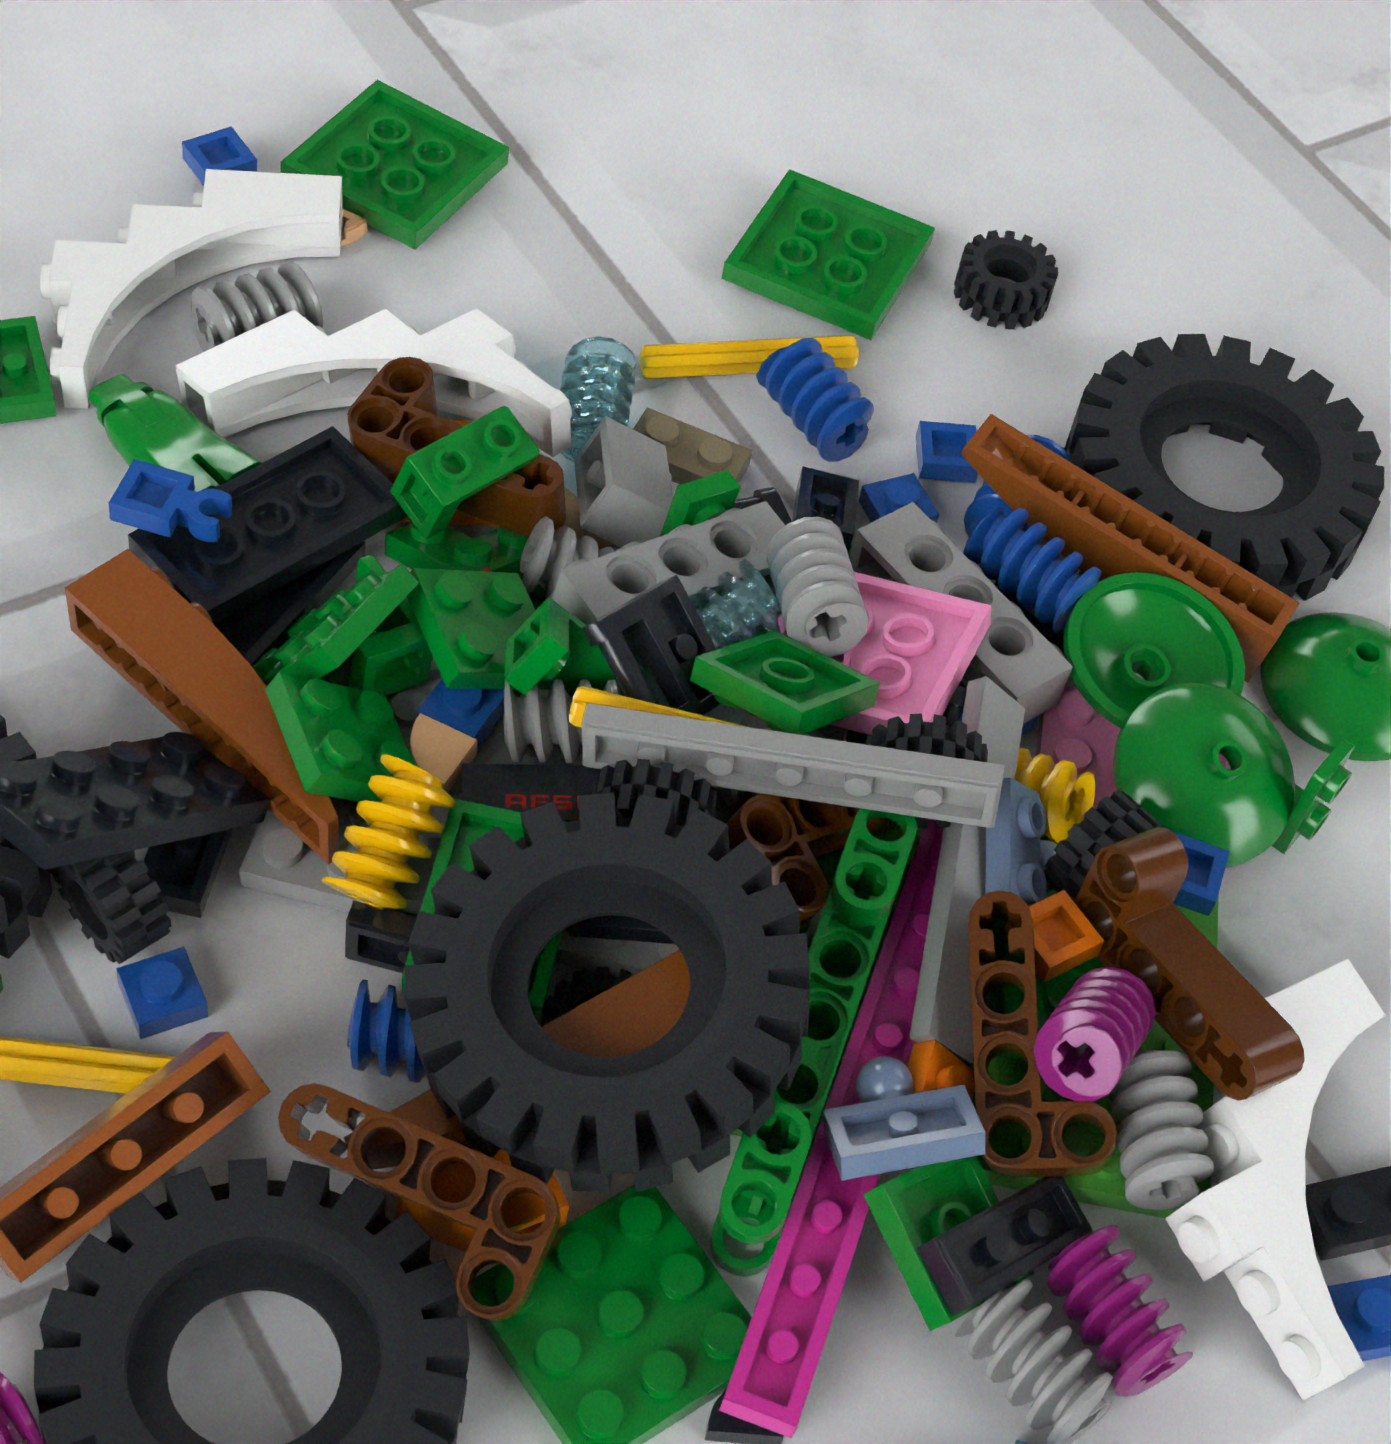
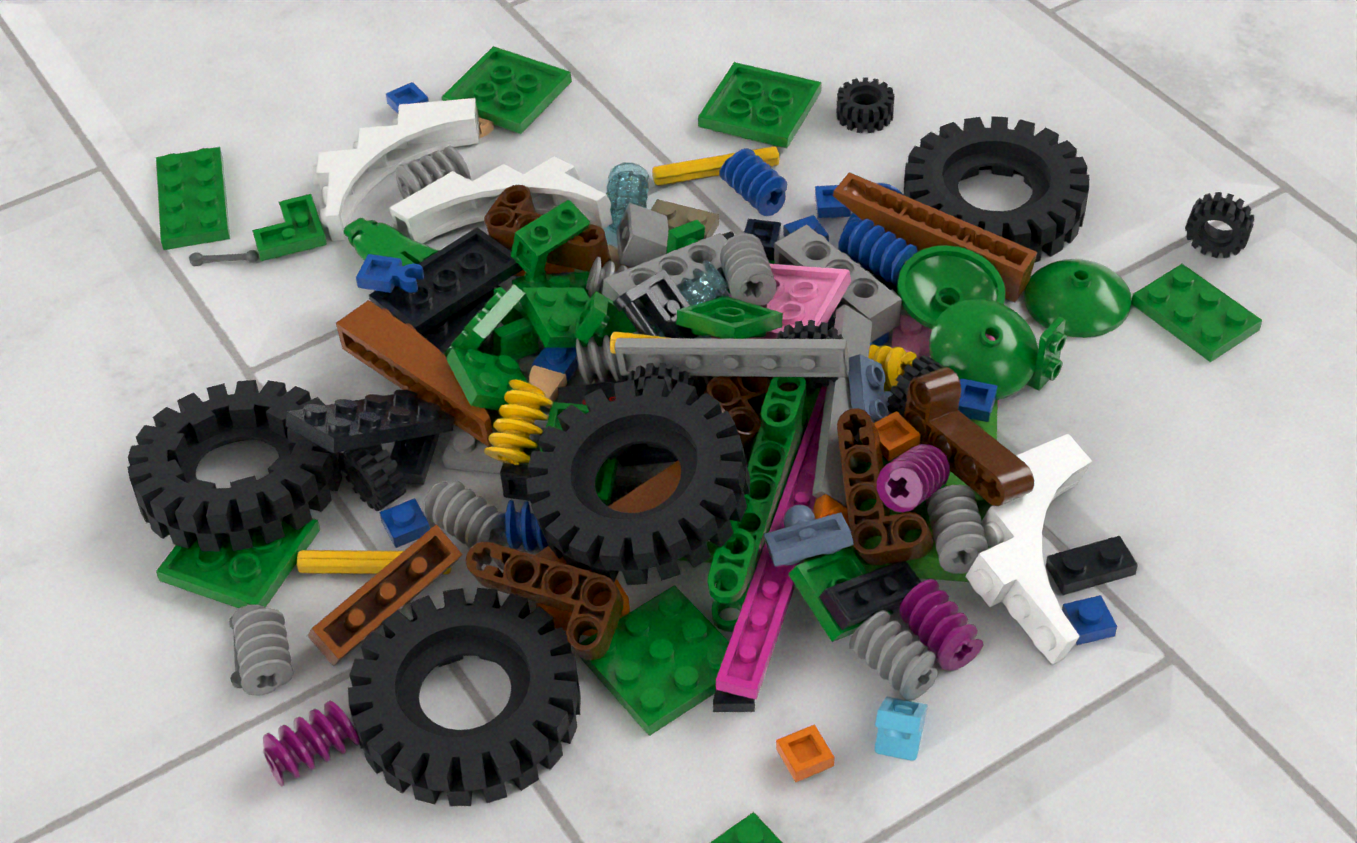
camera: 10 degrees right, 5 degrees down
(275, 998) = (463, 514): none -> light grey piece

